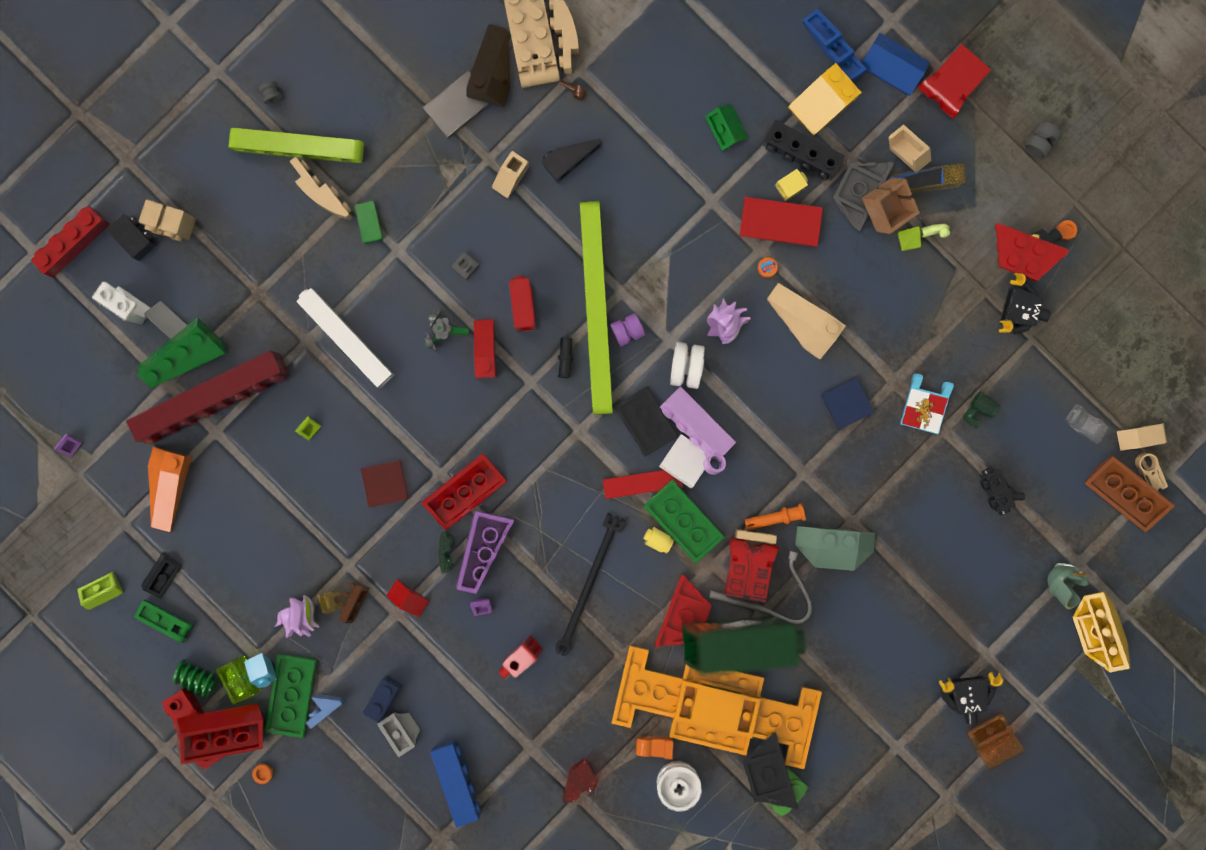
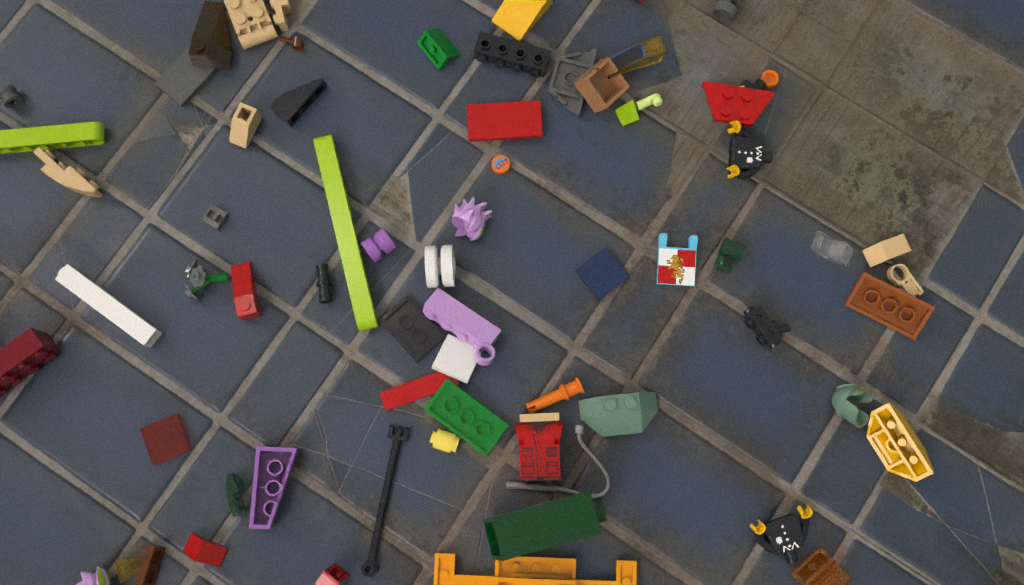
camera: 10 degrees left, 10 degrees down
(308, 428) = (82, 399): lime slope -> none
(368, 222) = (118, 195): green tile -> none
(464, 491) = (244, 431): red slope -> none
(481, 606) = (280, 543): medium lavender slope -> none
(522, 304) = (273, 240): red window -> none
(685, 607) = (483, 502): red wing -> none
(792, 184) = (507, 86): light yellow brick -> none
(810, 324) = (547, 205): tan wedge -> none
(909, 148) = (608, 33): tan panel -> none

